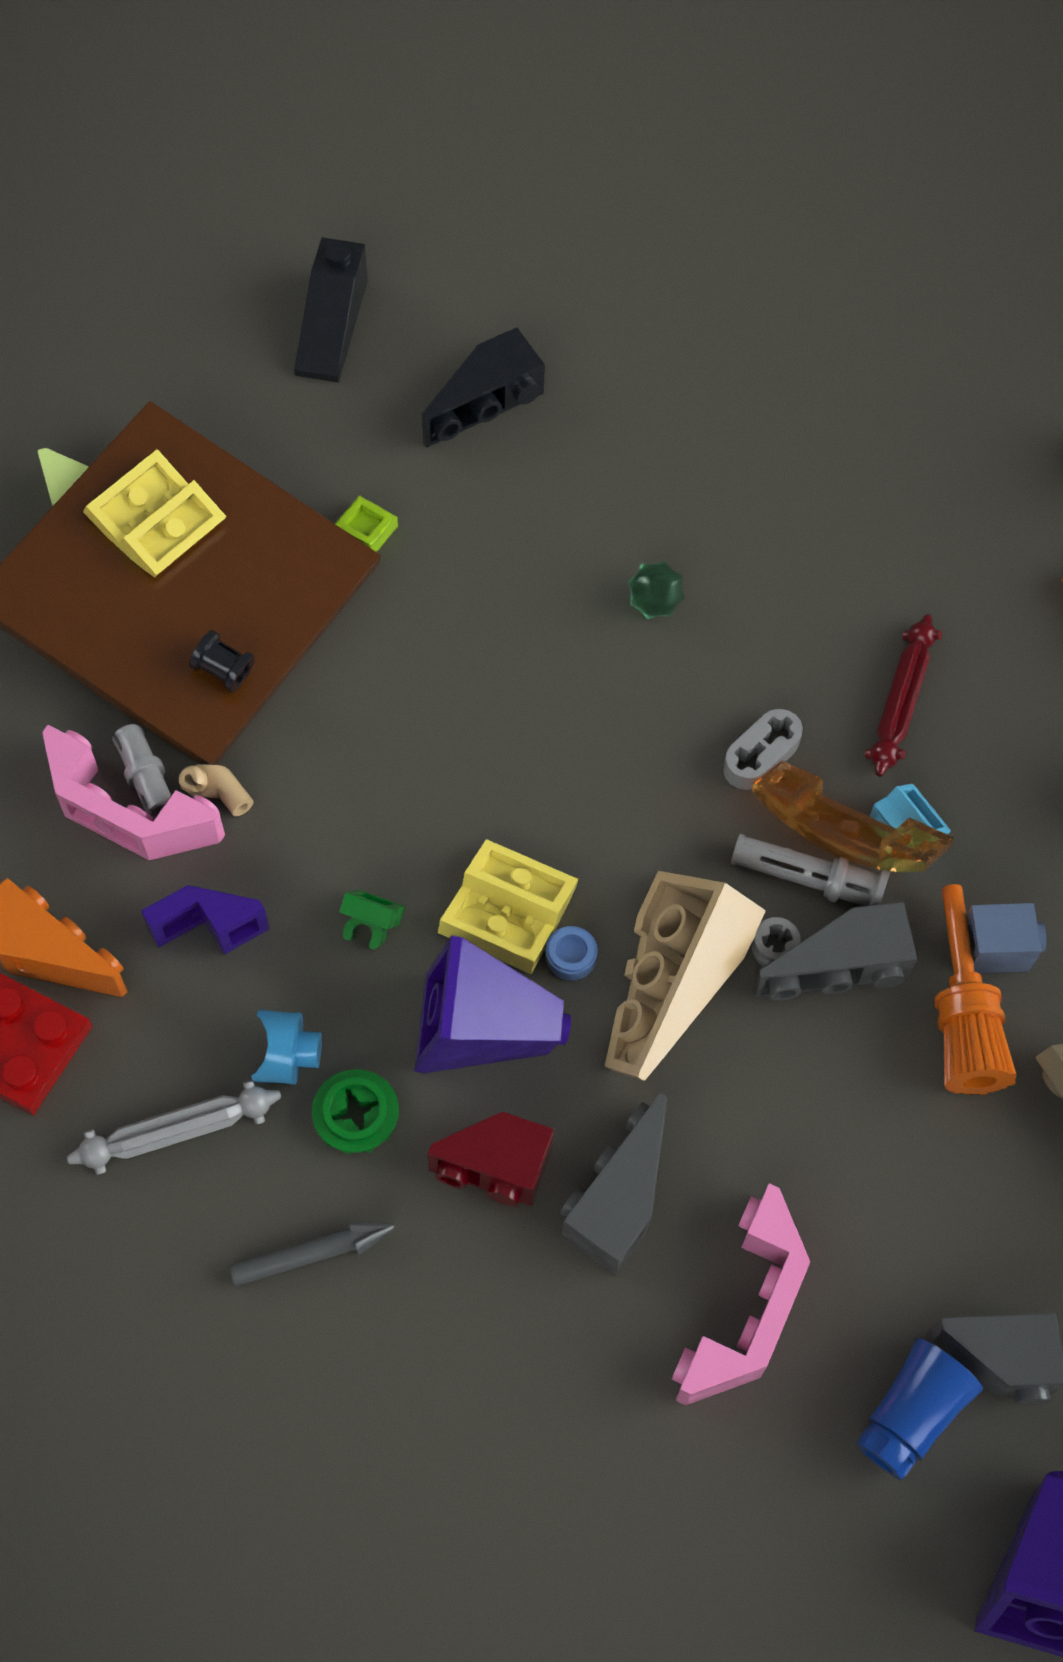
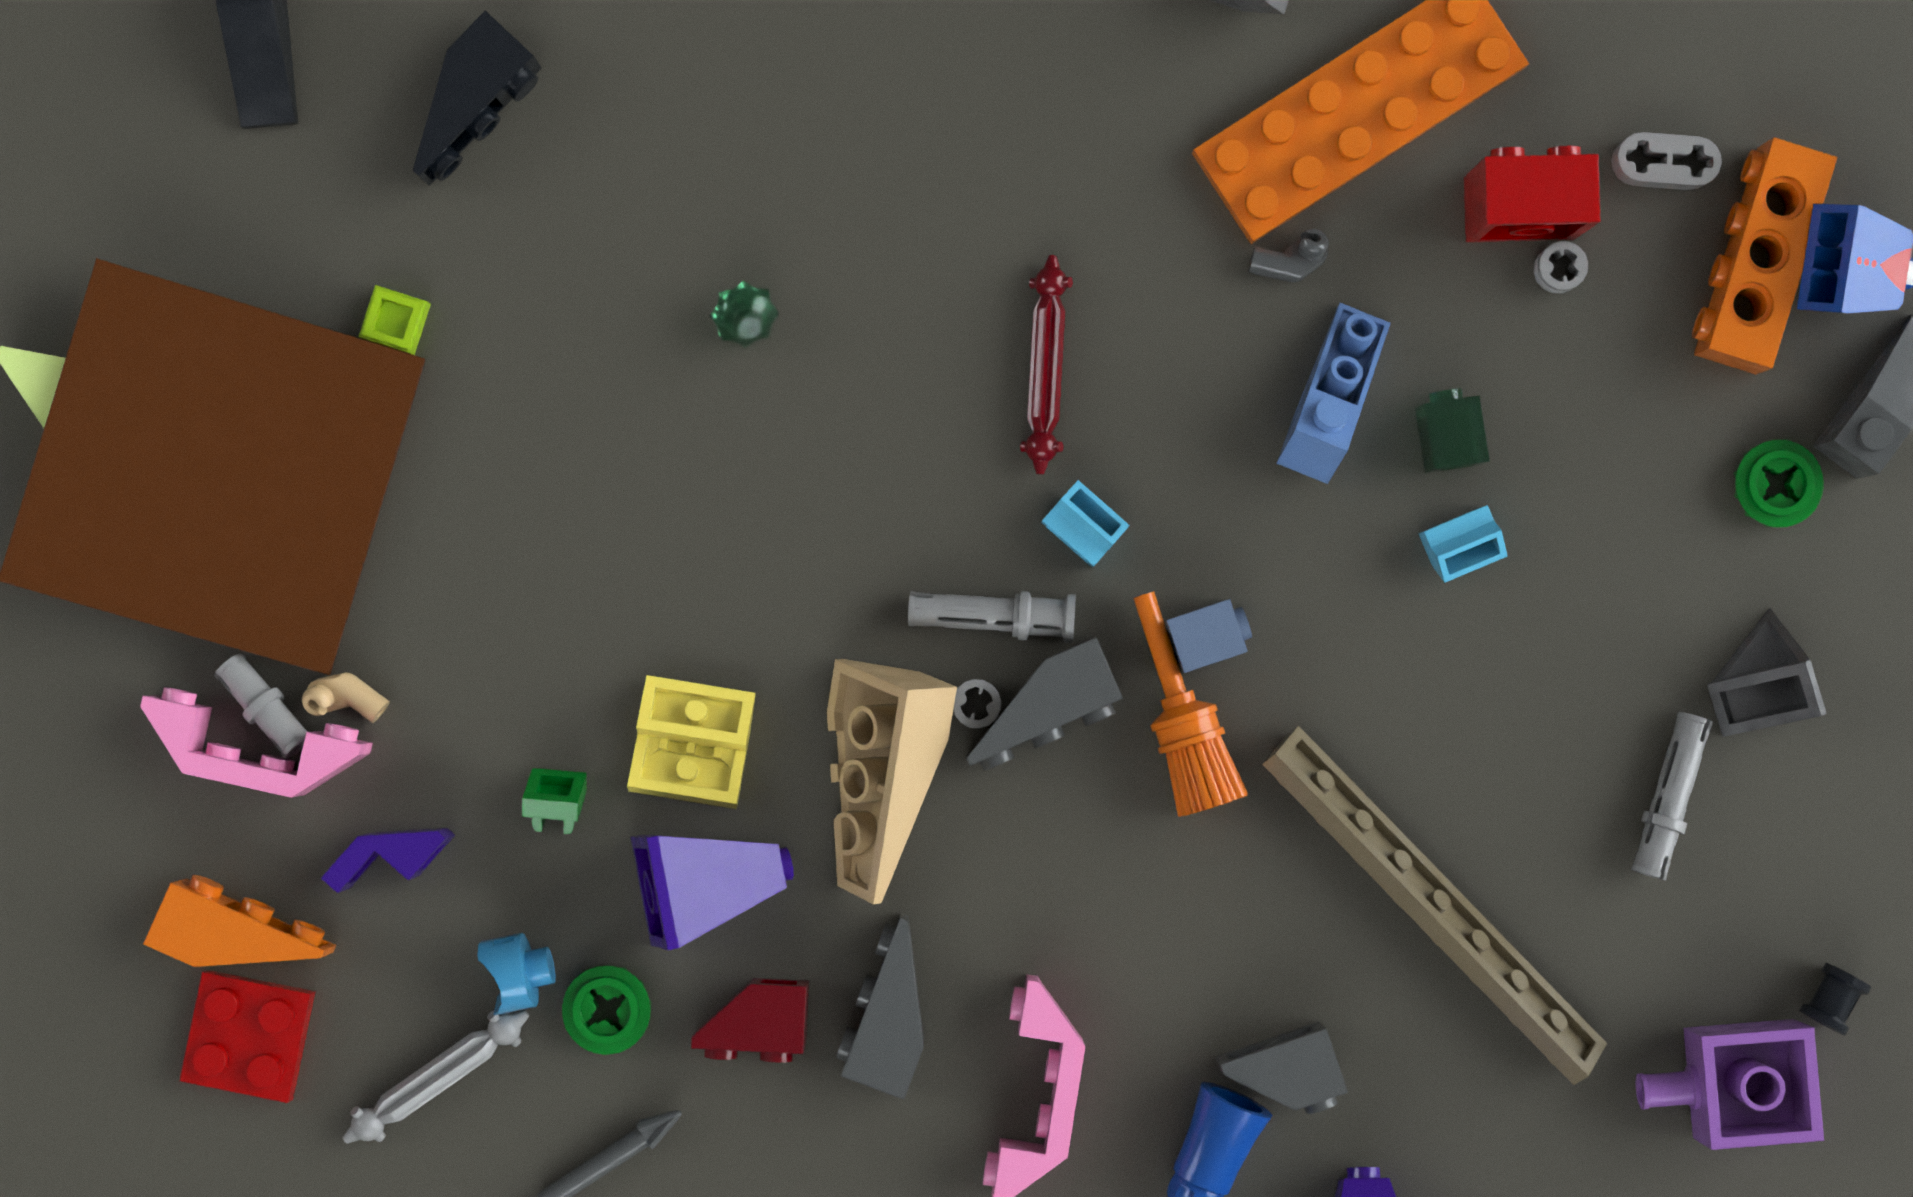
camera: 15 degrees left, 25 degrees up
(154, 514) = (159, 408): light yellow slope -> none
(221, 661) = (299, 564): black bush -> none
(571, 953) = (770, 774): medium blue tile -> none
(756, 742) = (897, 472): light grey beam -> none
(798, 801) = (1017, 558): clear orange slope -> none

